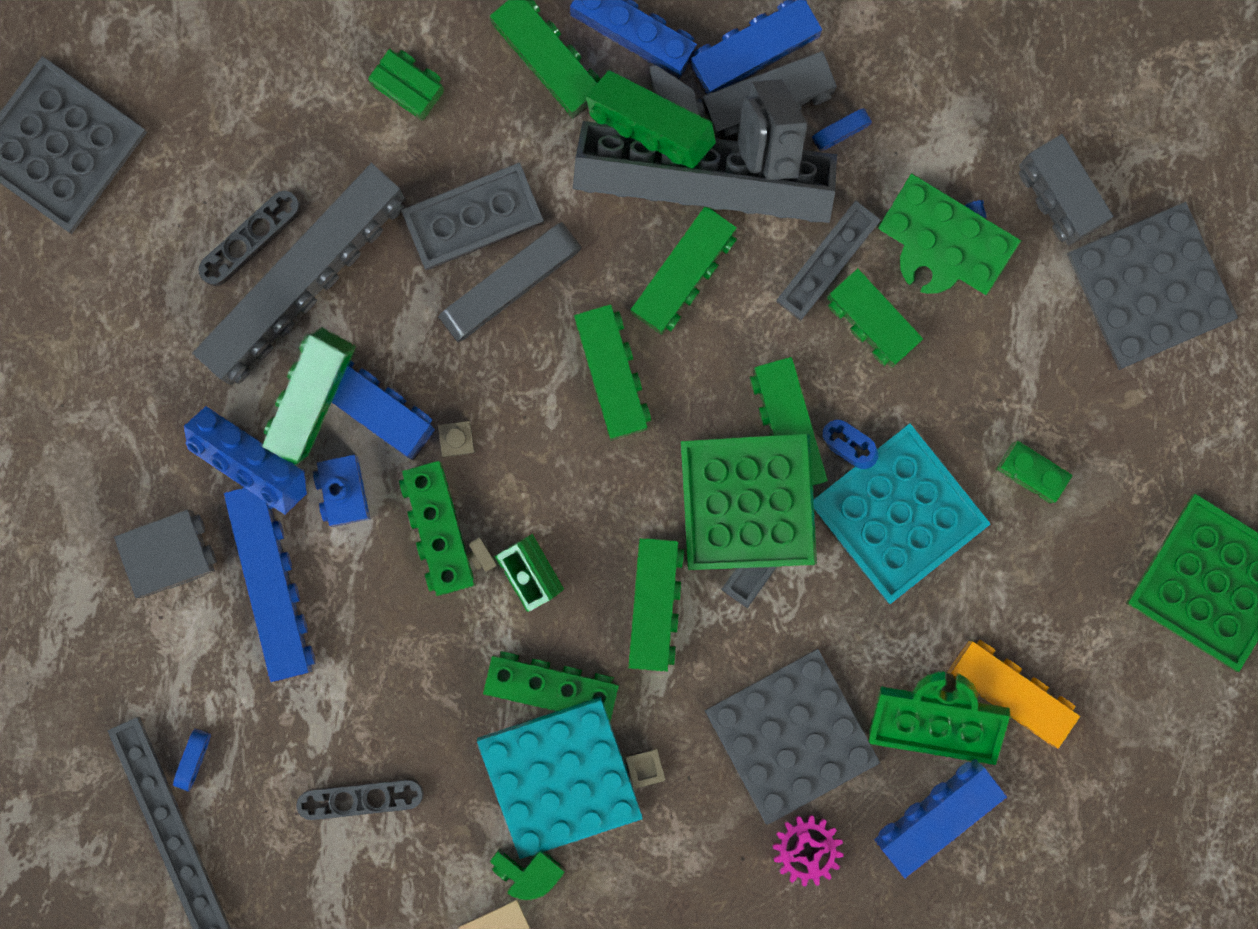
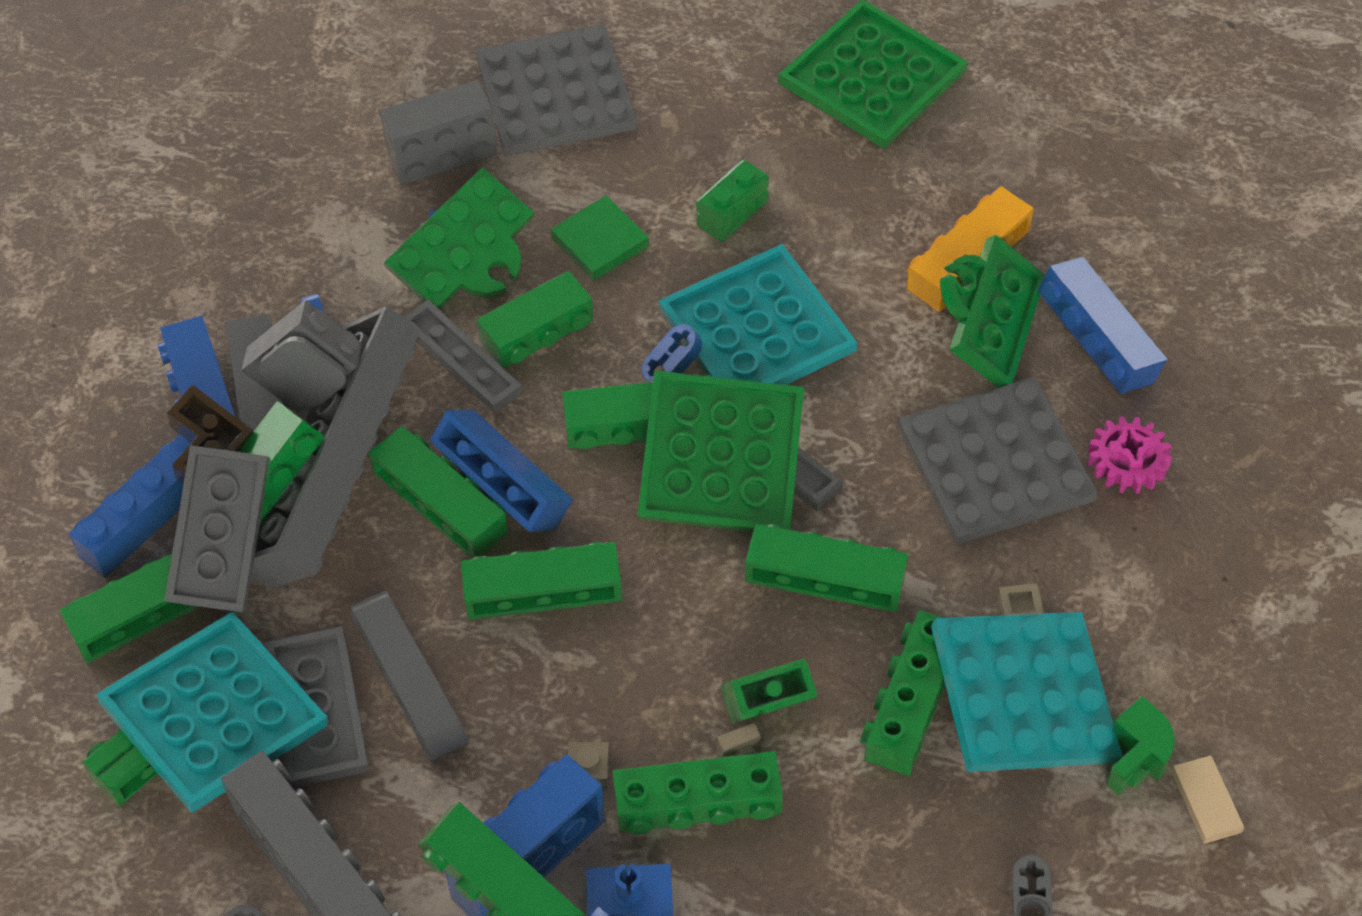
camera: 80 degrees left, 30 degrees down
(442, 138) = (211, 709): none -> teal plate
(592, 102) = (217, 529): none -> dark grey plate
(679, 79) = (204, 425): none -> dark brown brick
(708, 321) = (501, 470): none -> blue brick
(981, 358) = (599, 237): none -> green tile

